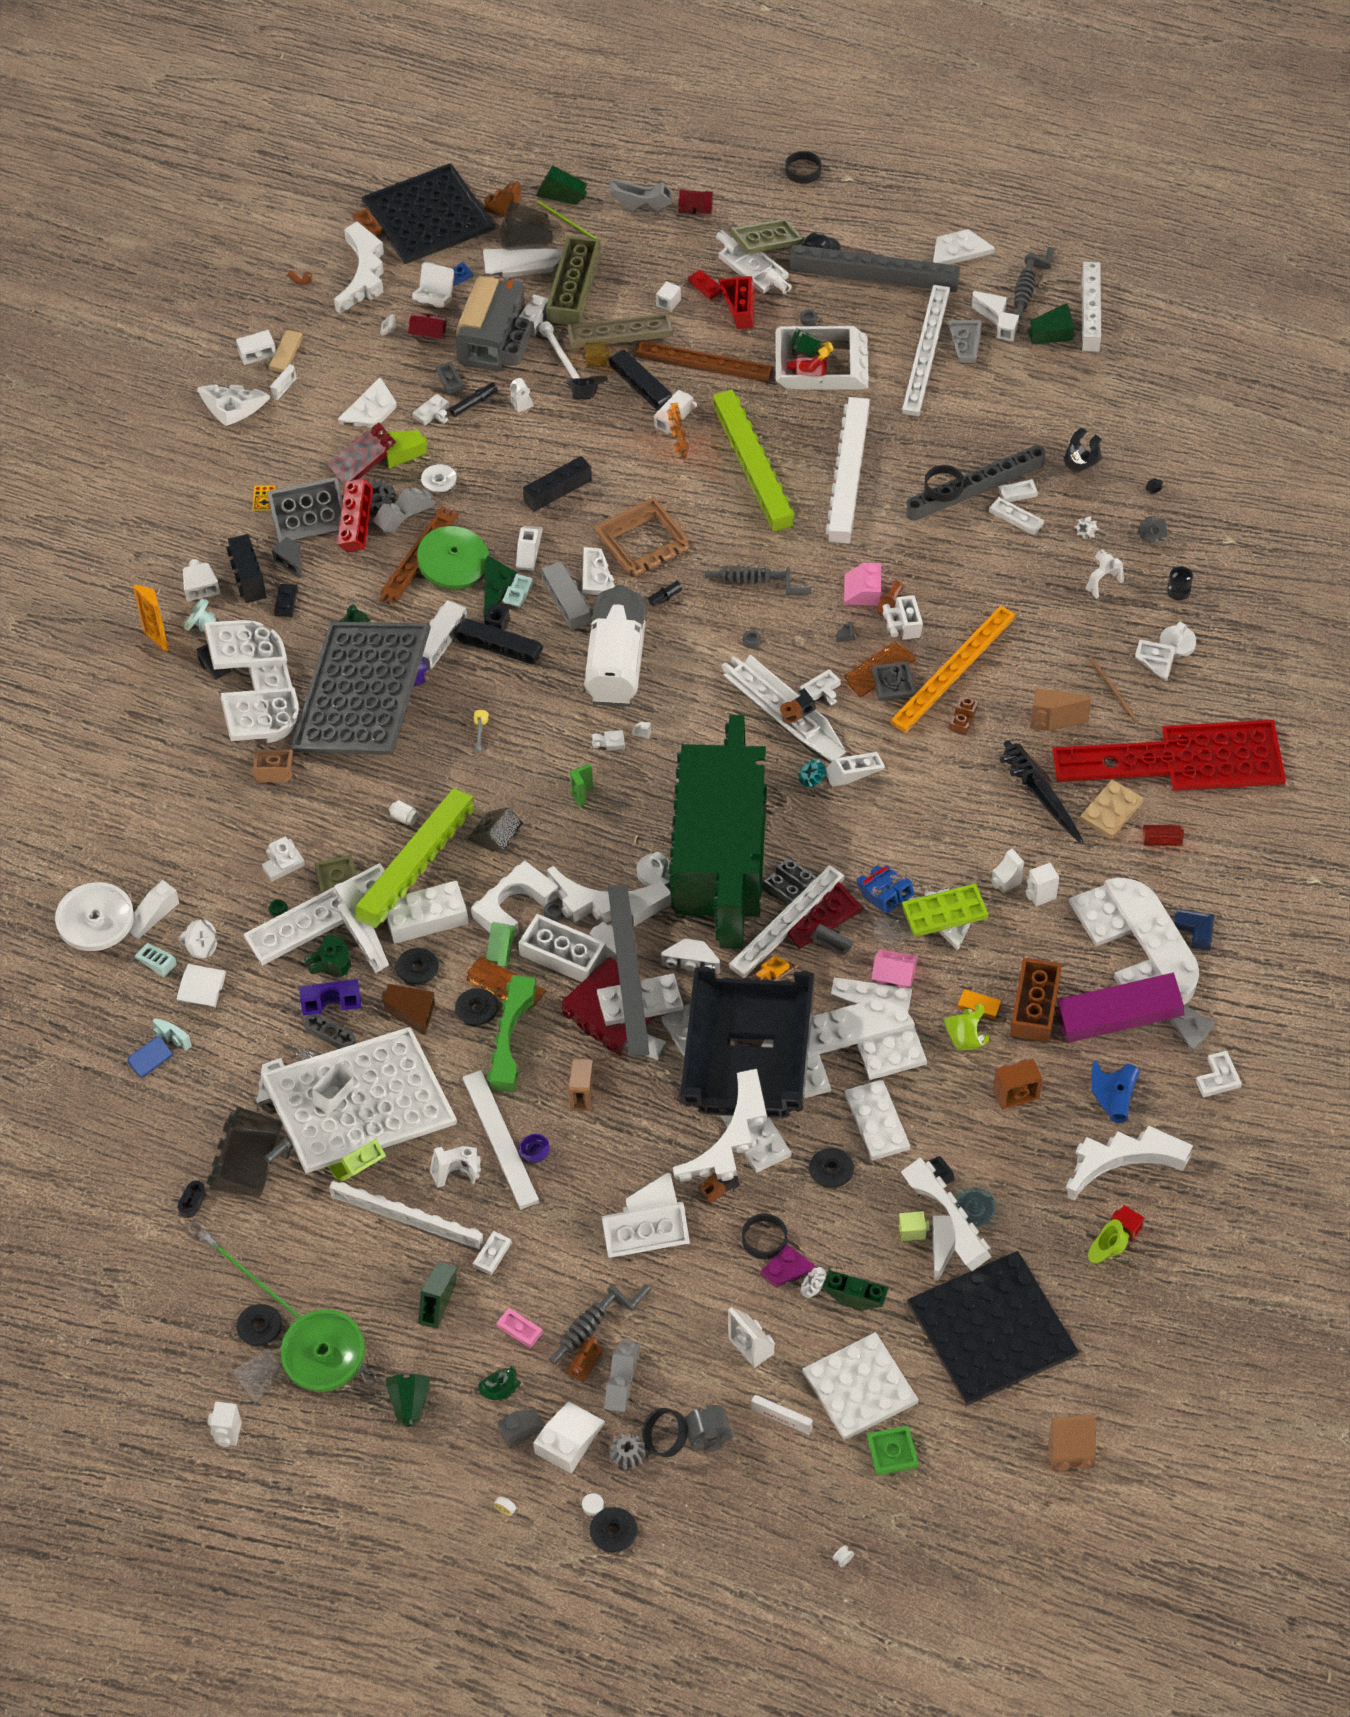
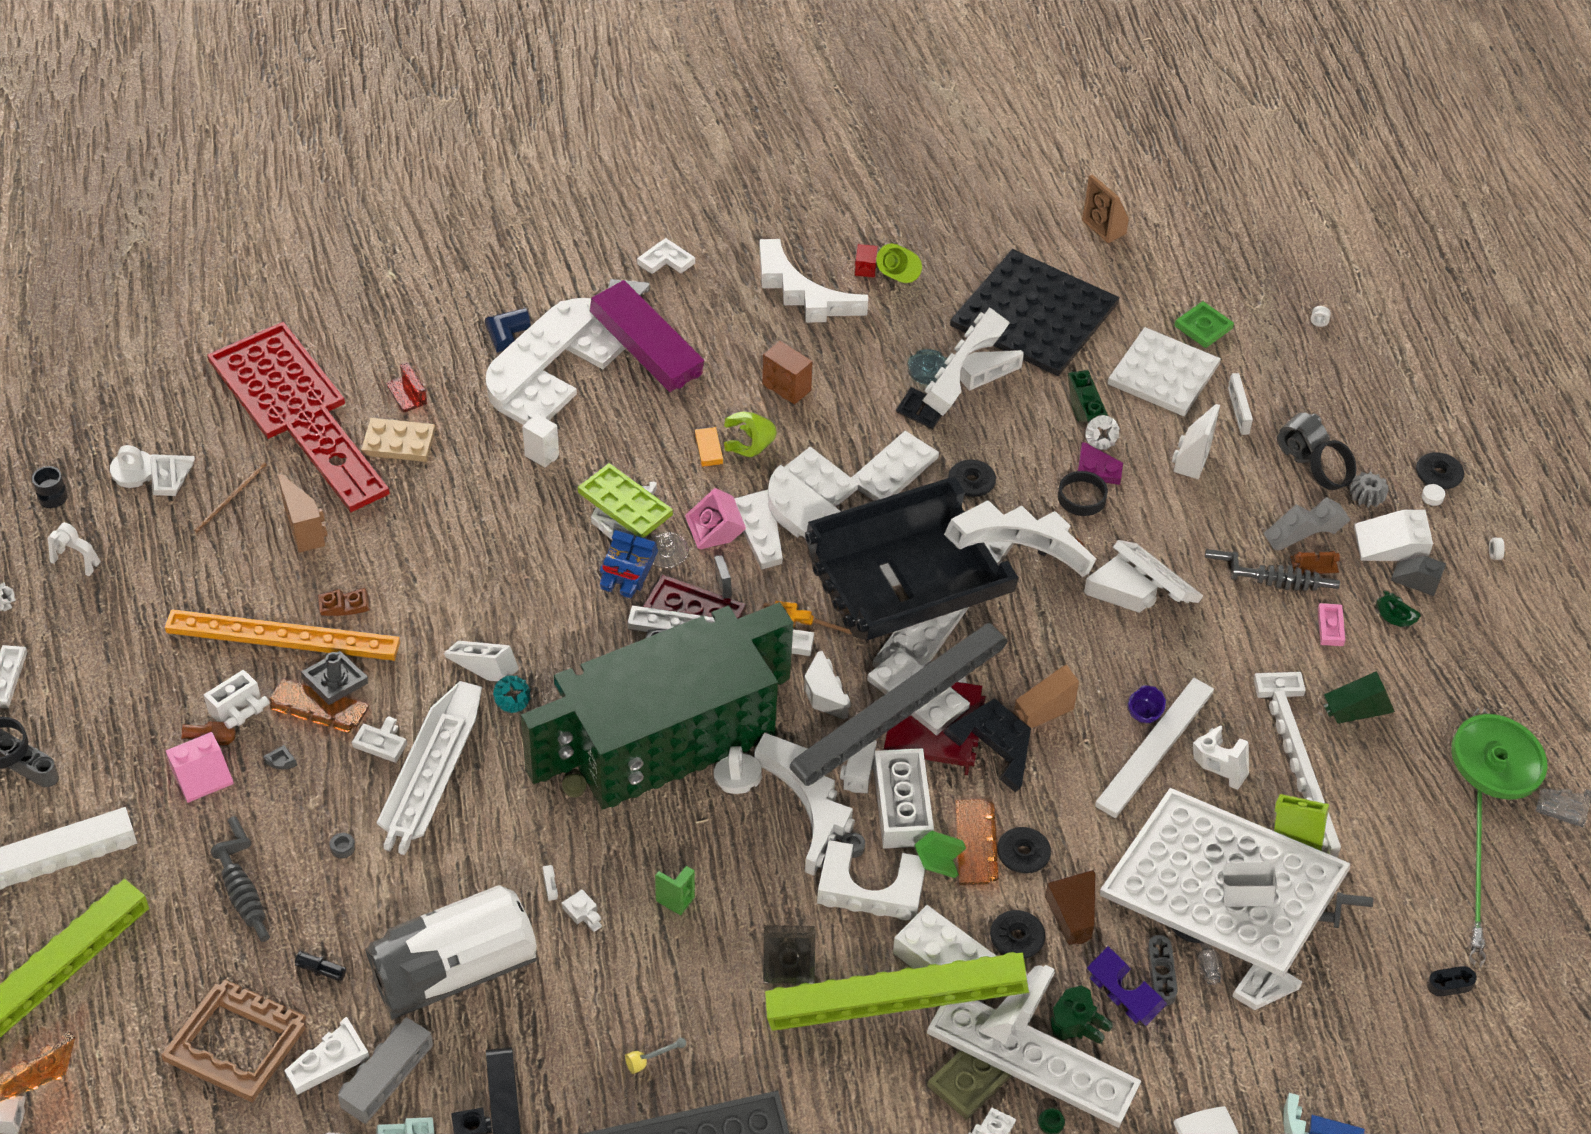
camera: 125 degrees left, 5 degrees down
(241, 1160) = (1375, 961): clear smoke windscreen -> none
(255, 1313) = (1507, 845): black wheel -> none
(403, 813) = (830, 1062): white brick -> none
(408, 1397) = (1473, 666): dark green cone -> none
(521, 996) = (992, 802): bright green arch -> none
(576, 1039) = (1001, 732): none -> black wing
(798, 707) = (434, 733): leg -> none
(913, 1226) = (987, 394): yellowish green brick -> none
(1008, 872) = (541, 475): white arch -> none
(1025, 767) = (399, 509): black piece -> none
(1036, 999) = (680, 398): dark orange brick -> none
(1114, 1090) = (735, 316): blue pin -> none

